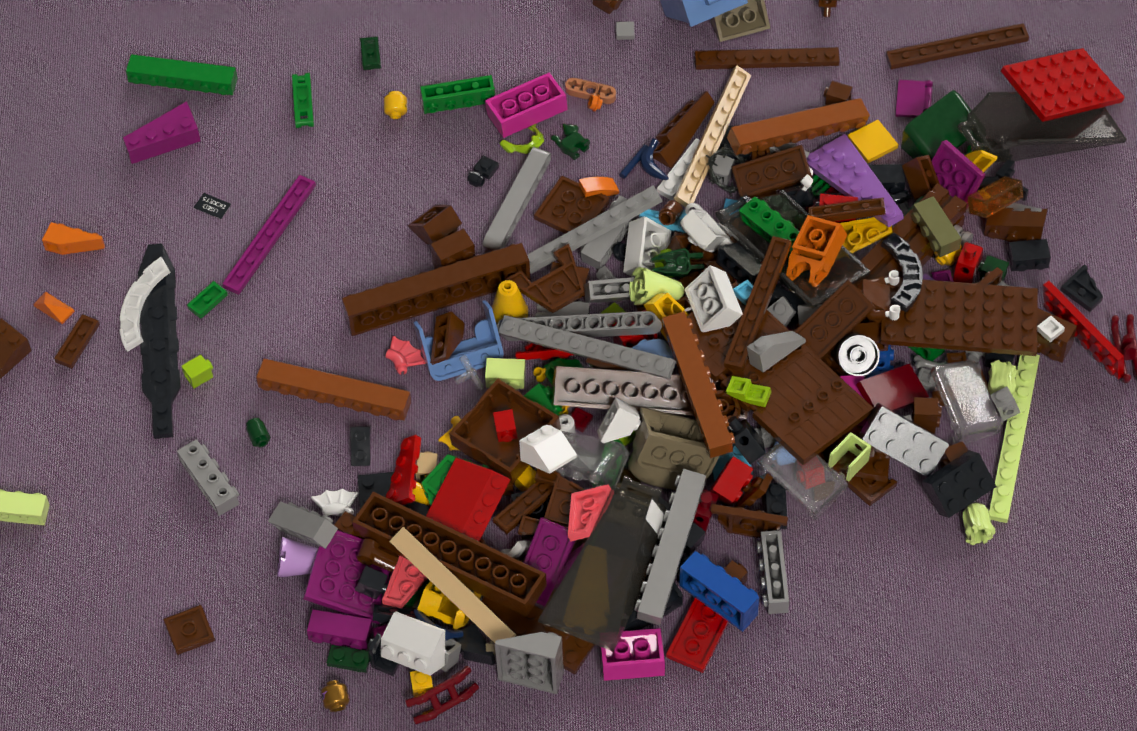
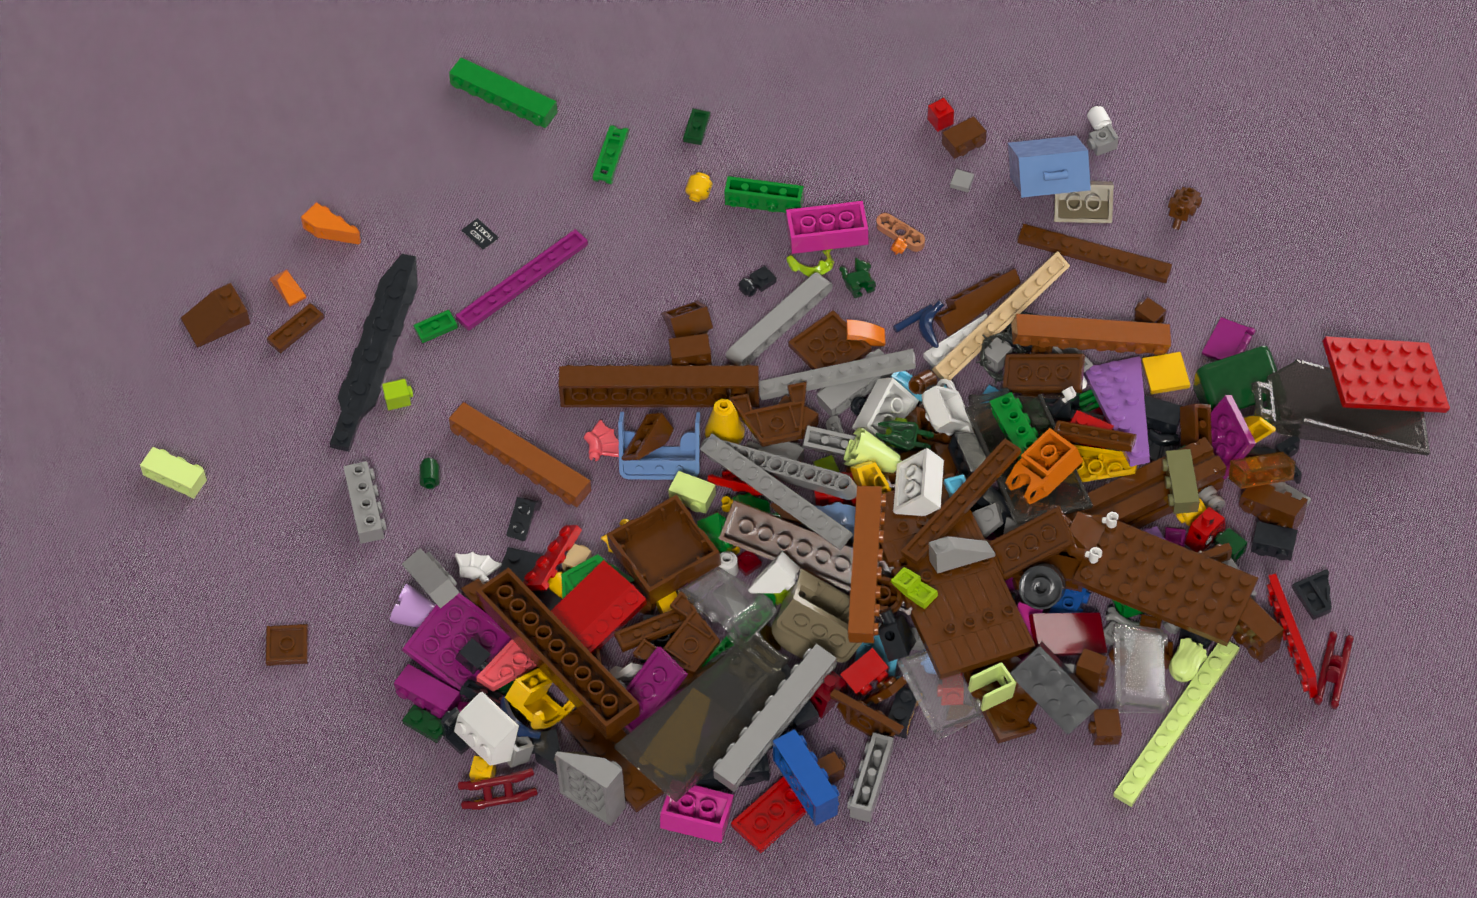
camera: 20 degrees right, 0 degrees up
(134, 302) = (365, 305): white tile -> none
(163, 135) = (459, 147): magenta wedge -> none
(335, 696) = (396, 755): pearl gold head -> none
(372, 553) = (485, 628): reddish brown piece -> none
(451, 586) = (542, 684): tan tile -> none
(470, 373) = (658, 481): clear piece -> none
(505, 425) = (665, 544): red brick -> none
(546, 449) = (691, 580): white slope -> none
(585, 510) = (702, 654): coral wing -> none
(654, 516) = (767, 682): white sticker -> none
(910, 268) = (1134, 519): black tile -> none
(957, 46) = (1297, 300): reddish brown plate -> none
(959, 484) = (1094, 750): black brick -> none
(977, 524) = (1098, 797): yellowish green piece -> none
(1005, 403) = (1178, 685): light grey brick -> none
(1050, 328) = (1252, 623): white plate -> none

